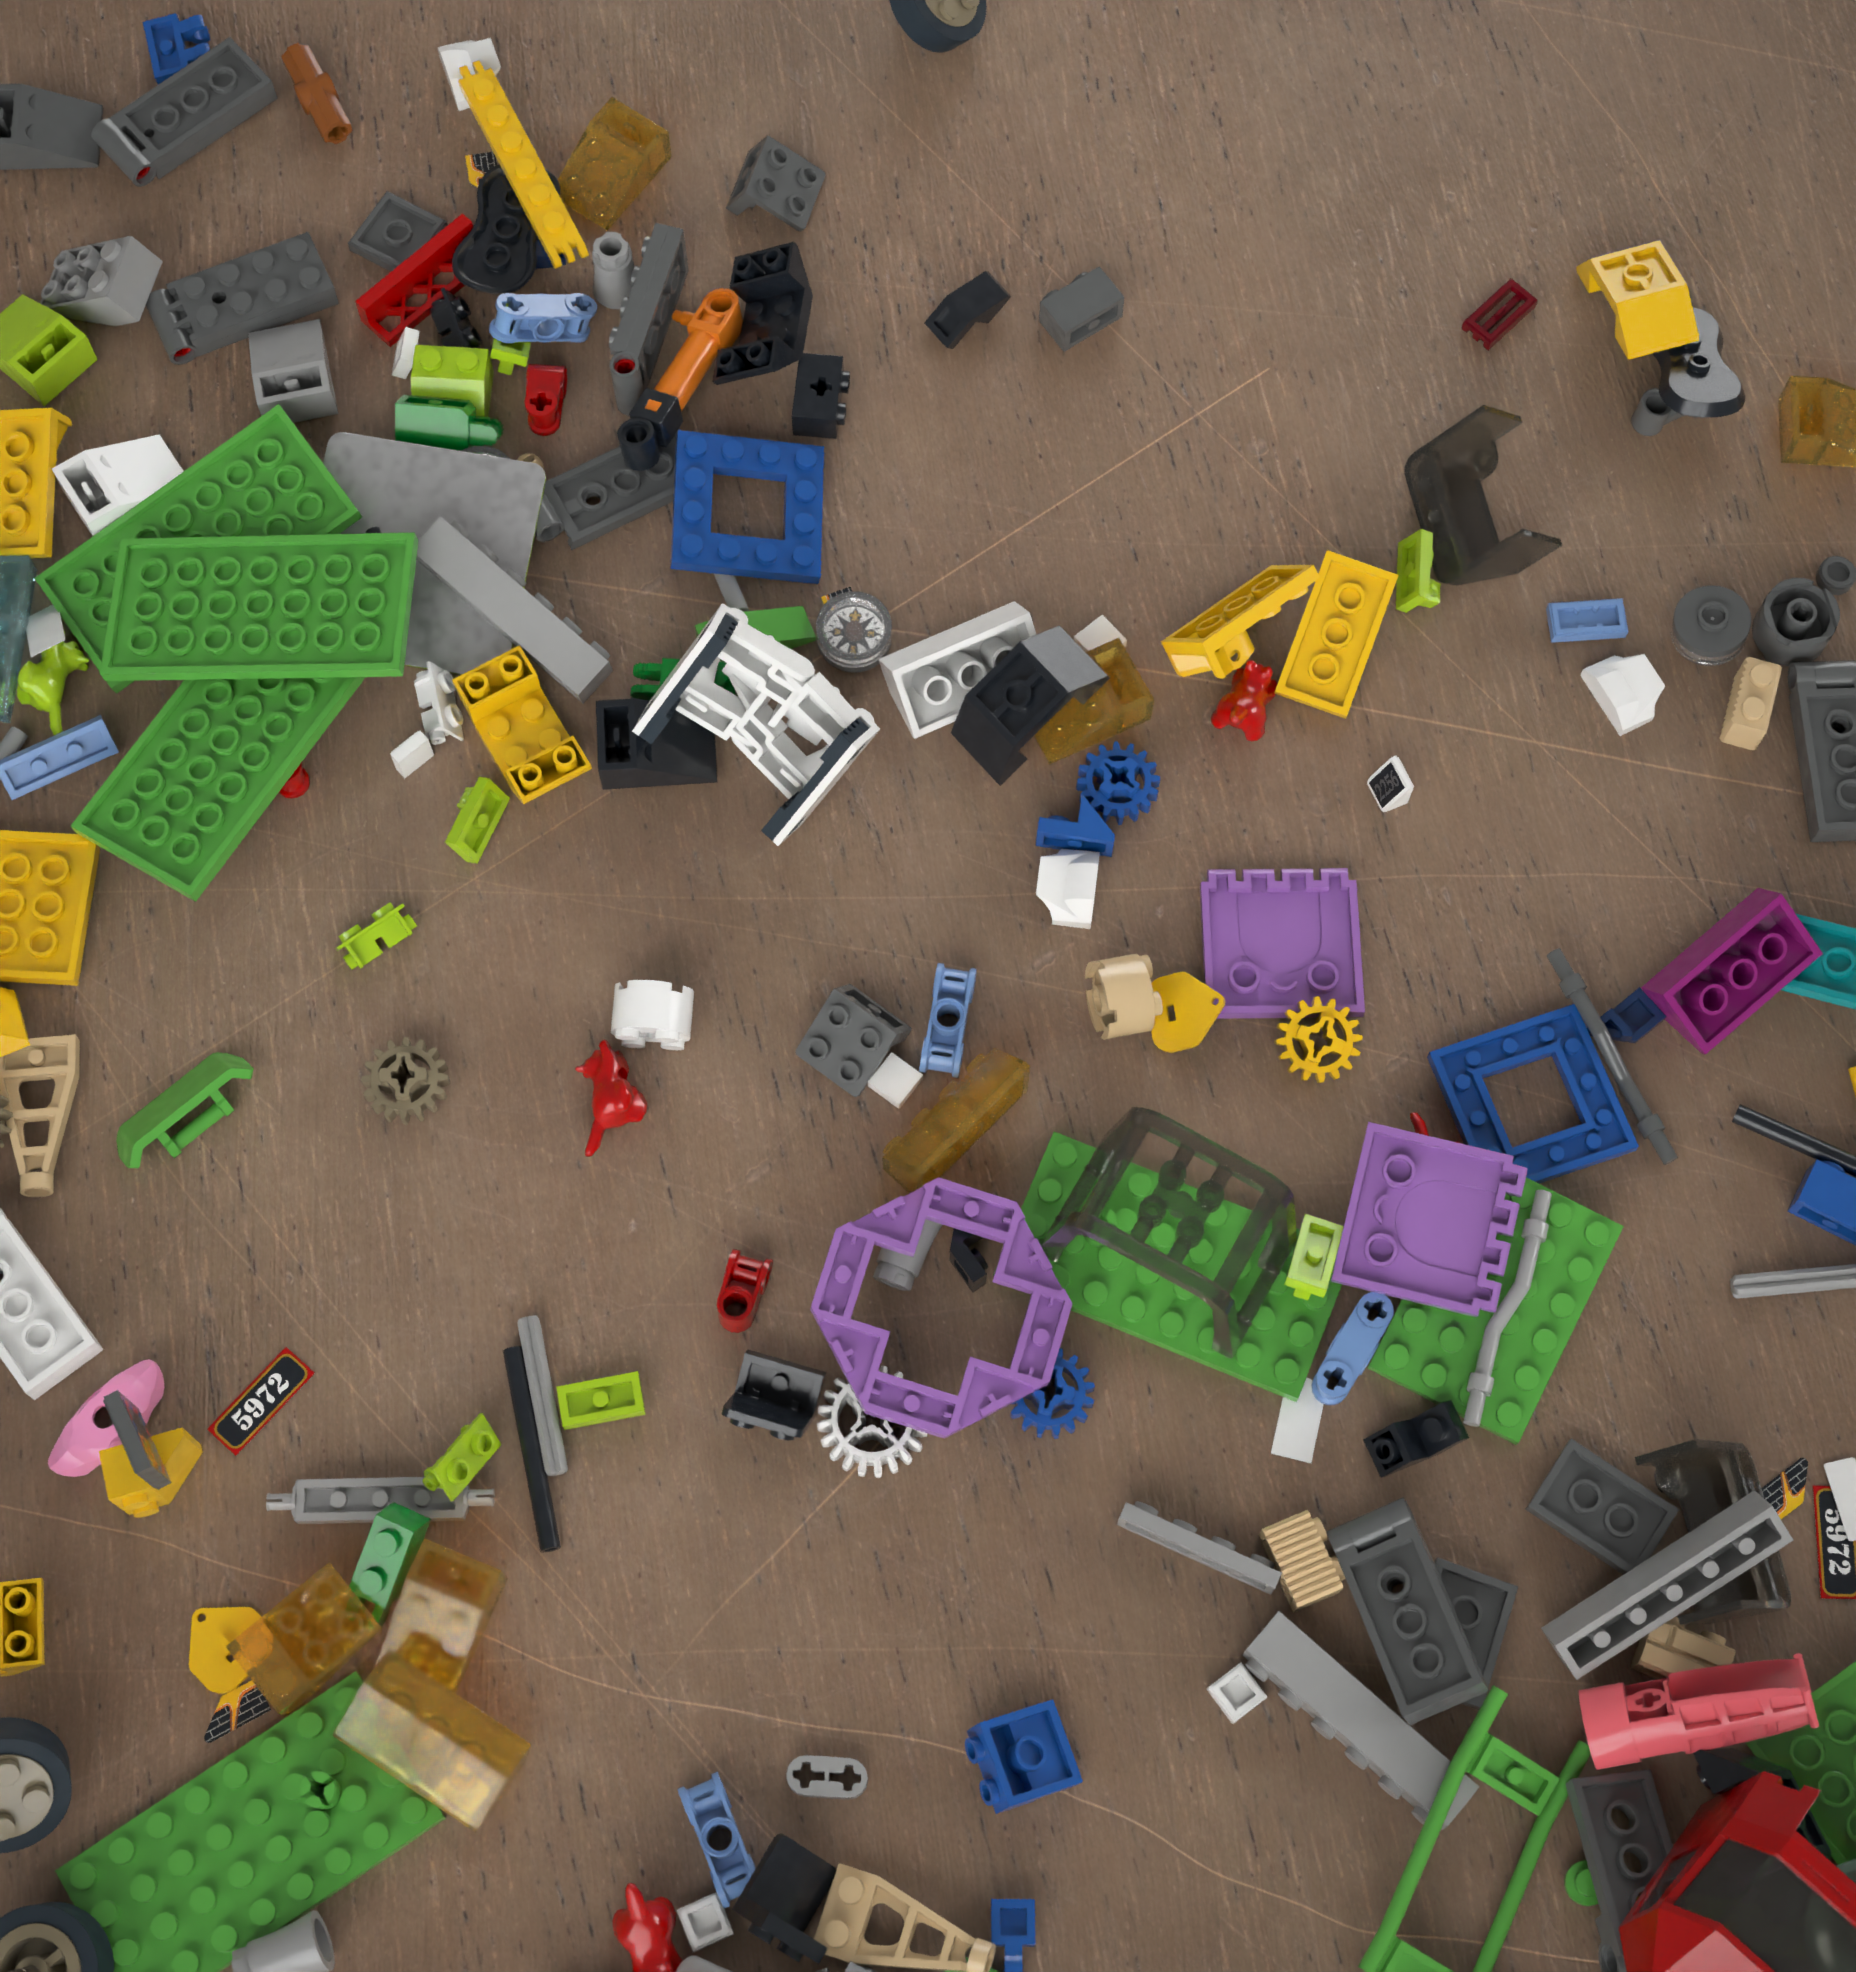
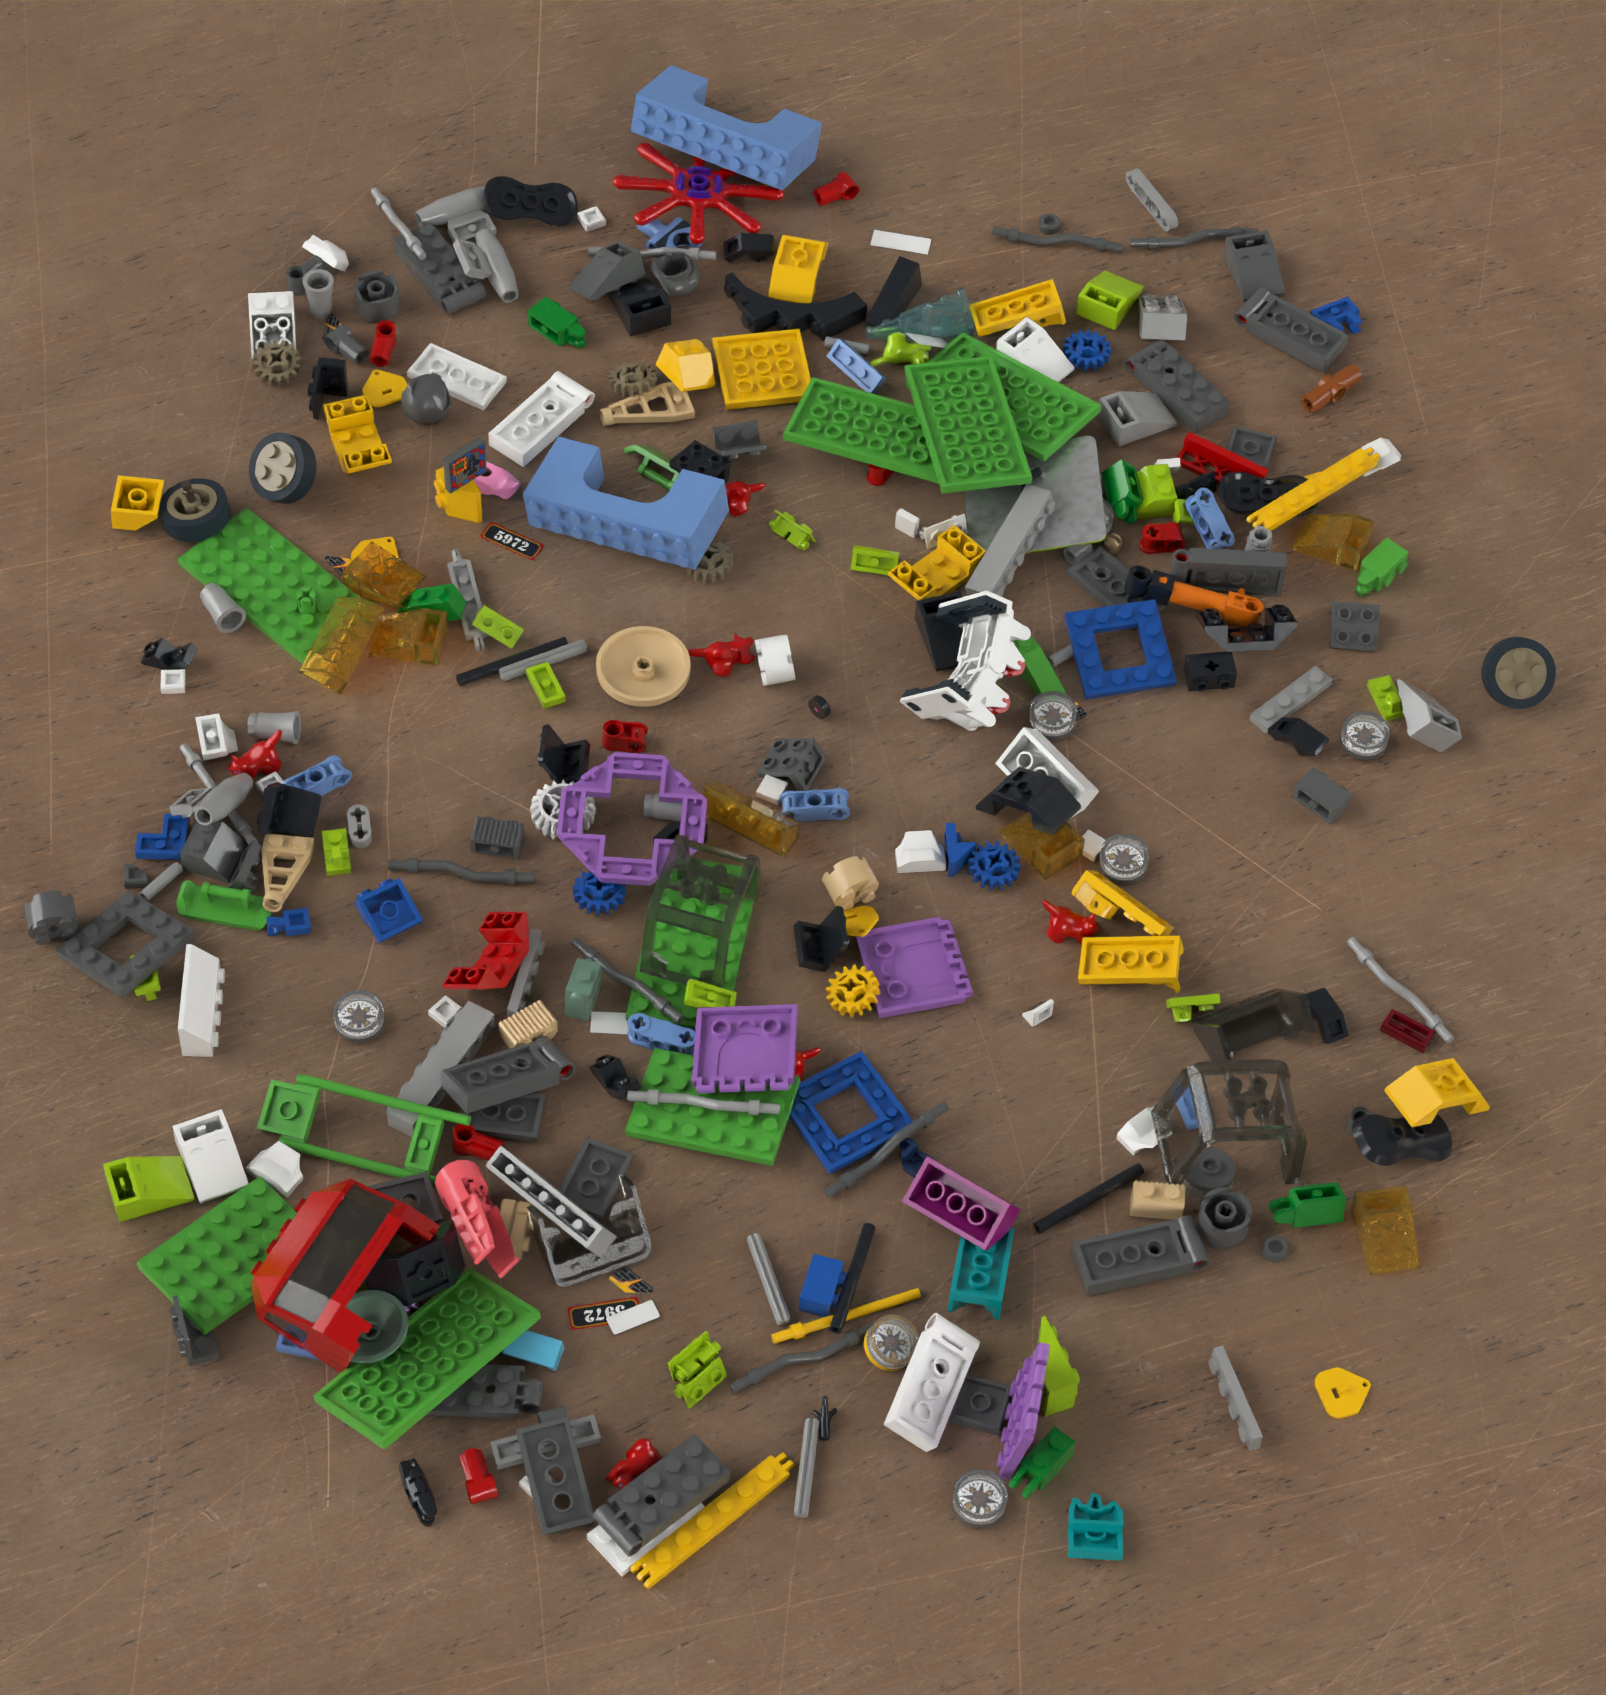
camera: 75 degrees right, 15 degrees down
(131, 406) = (1087, 350): none -> blue gear
(167, 977) = (736, 439): none -> dark grey bracket
(207, 1047) = (702, 460): none -> black bracket
(233, 1286) = (672, 530): none -> medium blue arch
(277, 1013) = (739, 496): none -> red animal
(583, 1895) = (266, 724): none -> light grey plant
(610, 1229) = (643, 666): none -> tan dish
(688, 125) = (1380, 567): none -> bright green hinge
(753, 970) = (819, 707): none -> black tile
(871, 1827) = (336, 852): none -> lime hinge
(889, 306) = (1290, 699): none -> light grey plate
(906, 1540) = (497, 837): none -> dark grey brick
(916, 181) = (1386, 697): none -> lime hinge
(930, 1695) = (414, 865): none -> dark grey bar
(985, 130) = (1427, 718): none -> light grey slope
(987, 224) = (1364, 735): none -> clear piece
(1143, 599) = (1123, 859): none -> clear piece
(1171, 1429) = (661, 1003): none -> dark grey bar
(1172, 1592) = (506, 949): none -> red slope
(1220, 1061) = (821, 944): none -> black bracket
(1233, 1844) = (358, 1016): none -> clear piece
(1246, 1455) = (583, 989): none -> sand green torso
(1371, 330) = (1432, 1020): none -> light grey bar
(1453, 403) = (1328, 1015): none -> black slope
(1519, 1679) = (477, 1143): none -> red piece
(1709, 520) = (1267, 1112): none -> clear smoke windscreen
(1724, 796) = (1088, 1198): none -> black piece
(1789, 505) = (1310, 1205): none -> green hinge

